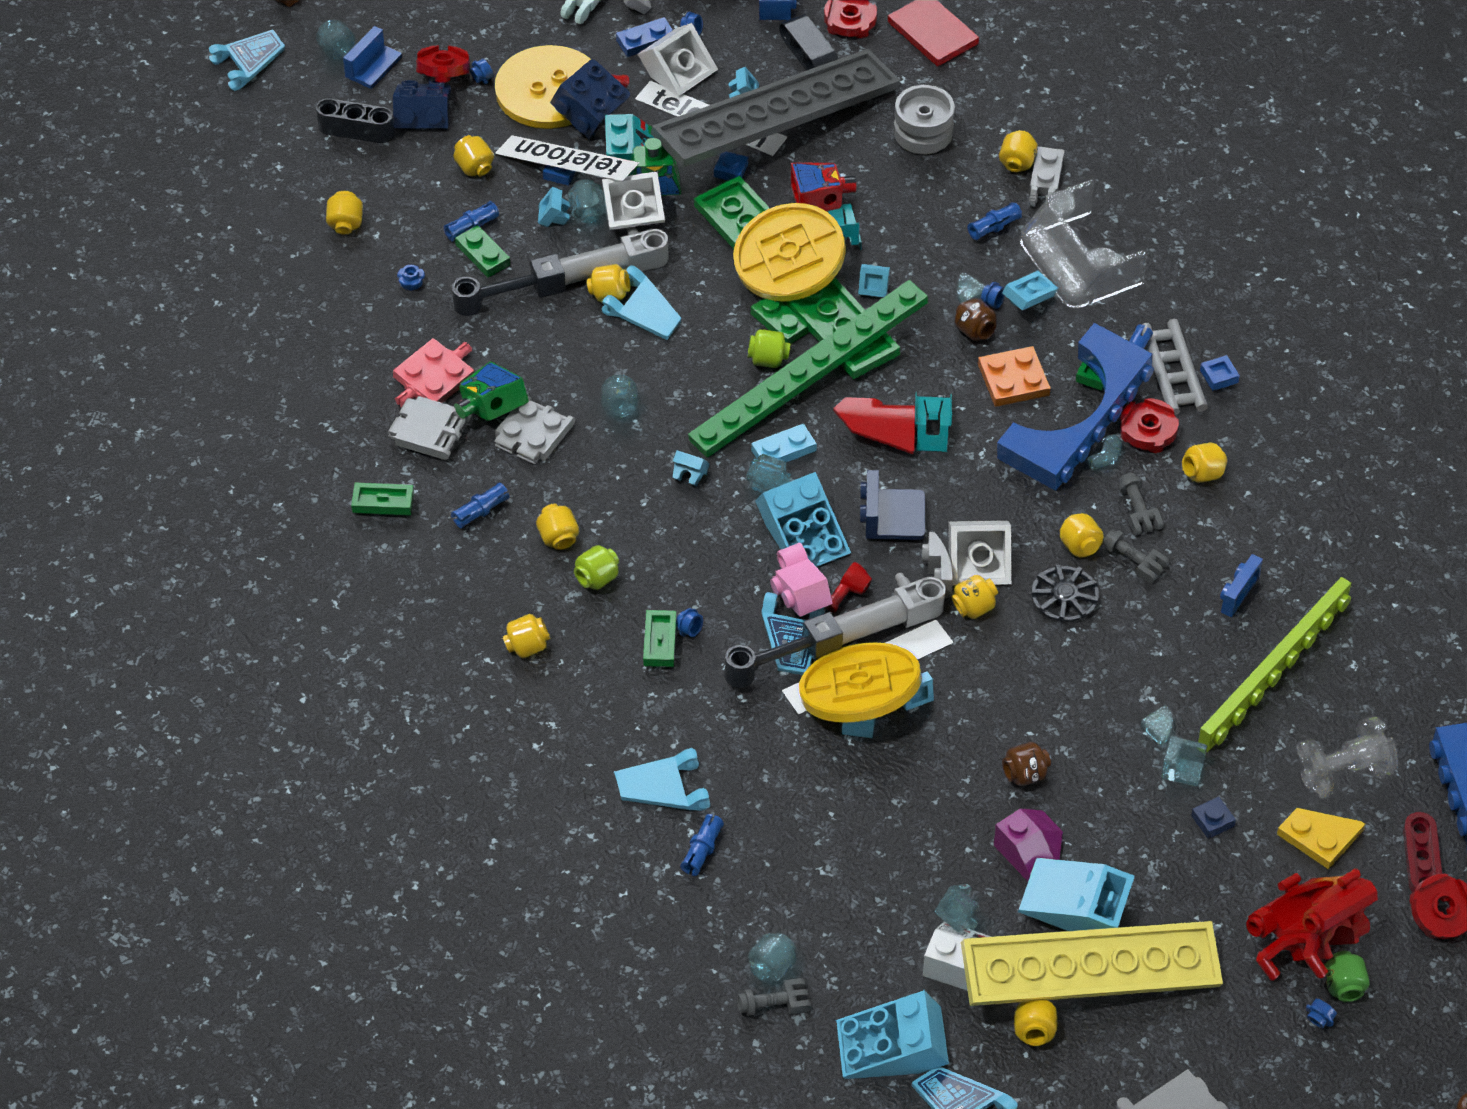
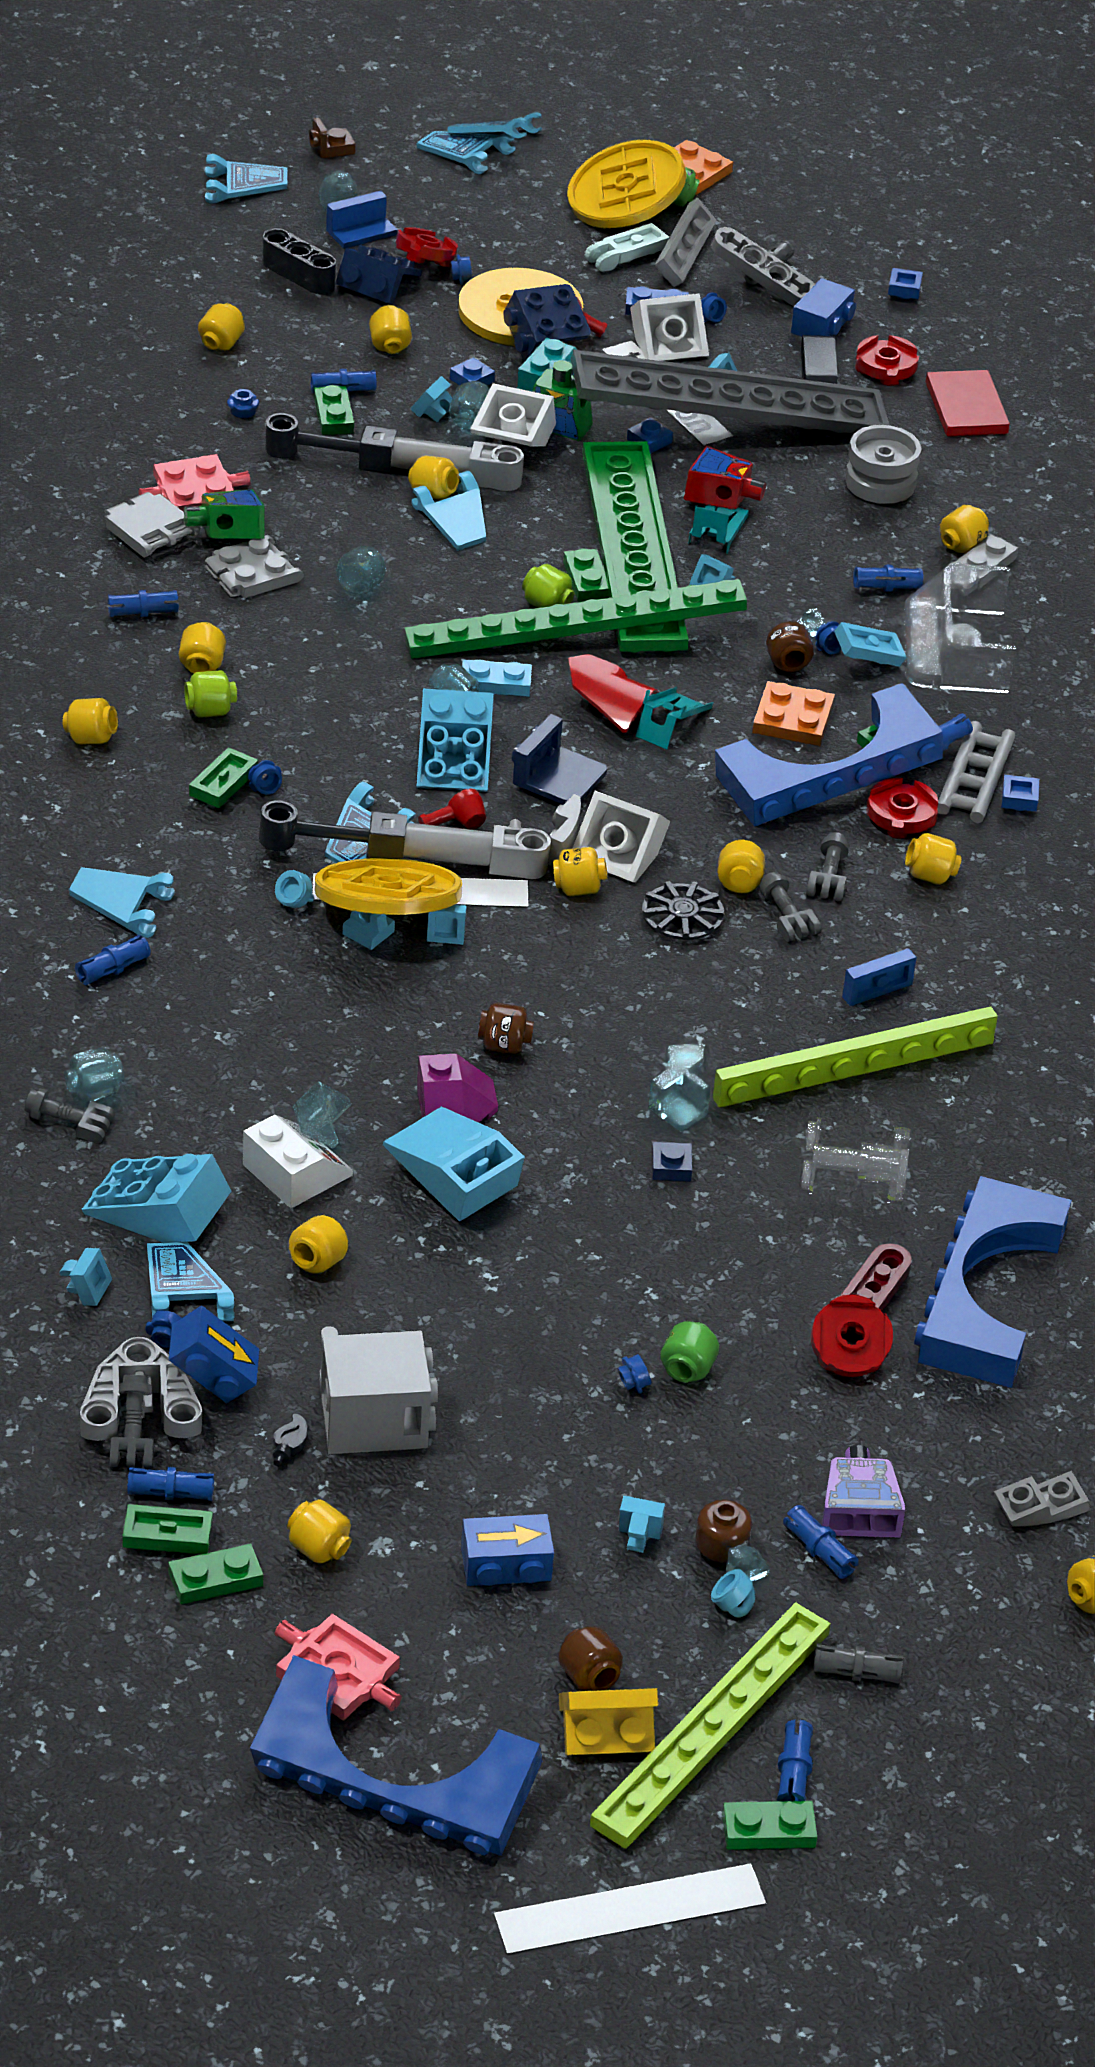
camera: 25 degrees right, 10 degrees down
(382, 498) = (52, 561): green plate -> none
(567, 158) = (479, 361): white sticker -> none
(689, 463) = (382, 651): medium azure tile -> none
(786, 715) = (294, 889): none -> medium azure tile
(789, 252) = (636, 513): yellow plate -> none
(800, 581) = (402, 785): bright pink hinge -> none
(1091, 963) = (414, 1213): light yellow plate -> none
(1109, 454) = (837, 815): clear light blue arm -> none
(1315, 914) = (690, 1264): red piece -> none
(1320, 834) = (777, 1225): yellow wing -> none

